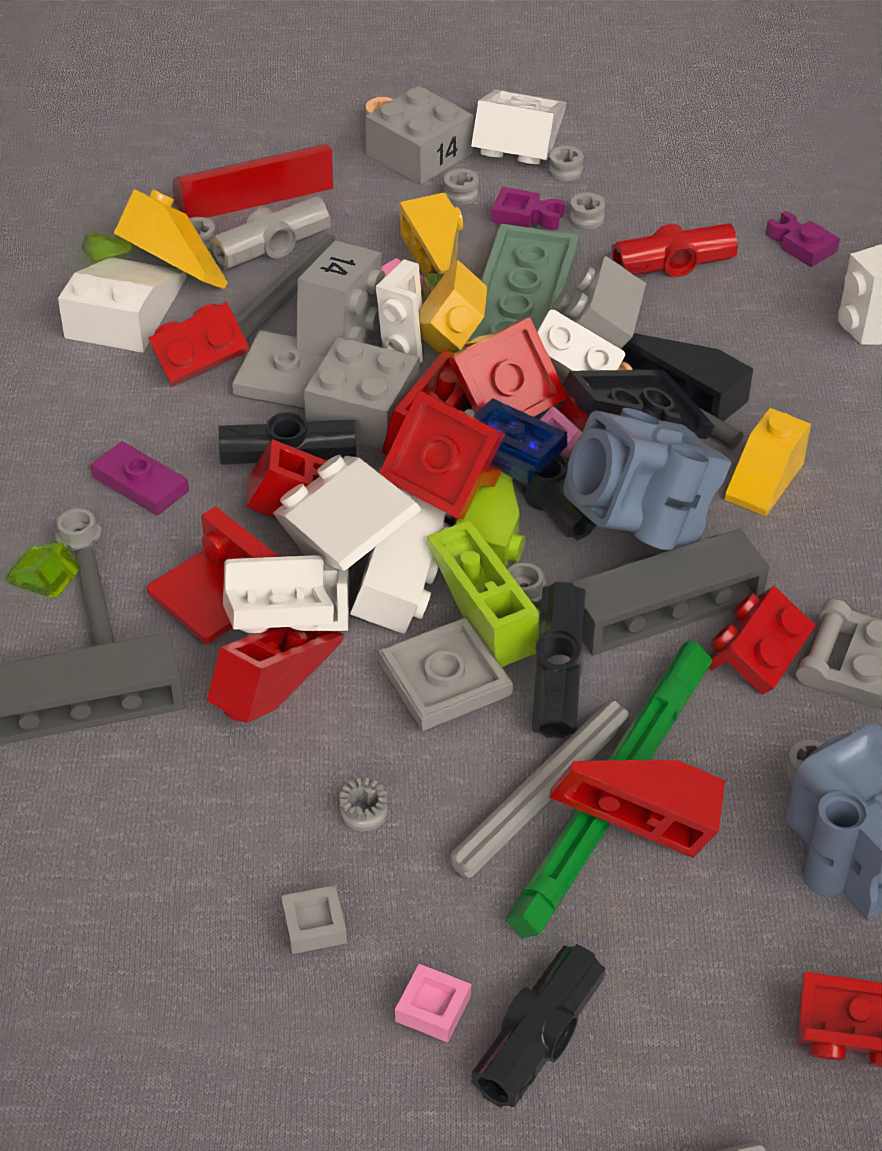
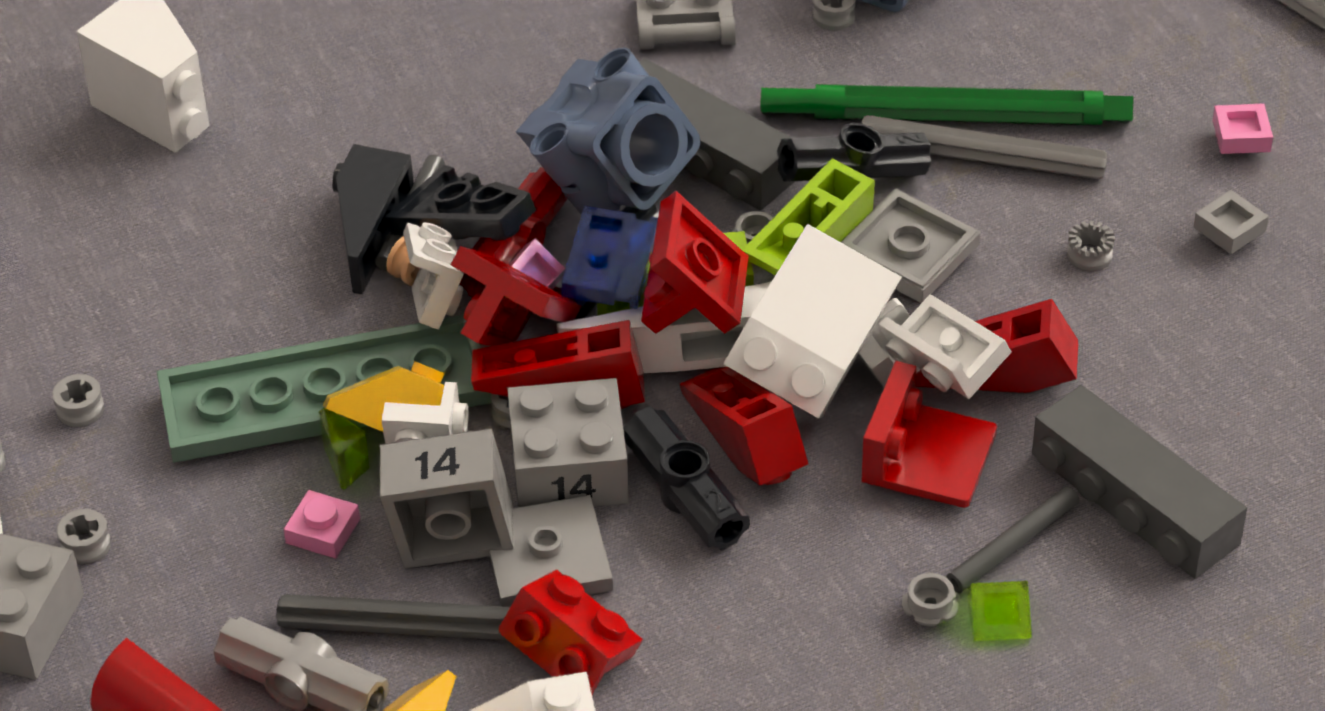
camera: 115 degrees left, 0 degrees up
(139, 478) = (811, 596): magenta plate -> none
(431, 231) = (237, 498): yellow slope -> none
(524, 207) = (113, 451): magenta plate -> none
(538, 1026) = (1211, 67): black piece -> none
(604, 301) = (354, 275): light grey brick -> none
(651, 798) = (967, 54): red slope -> none
(676, 249) = (136, 291): red piece -> none
(762, 638) = (722, 69): red bracket -> none
(769, 462) = (470, 117): yellow slope -> none
(805, 242) = (41, 203): magenta plate -> none

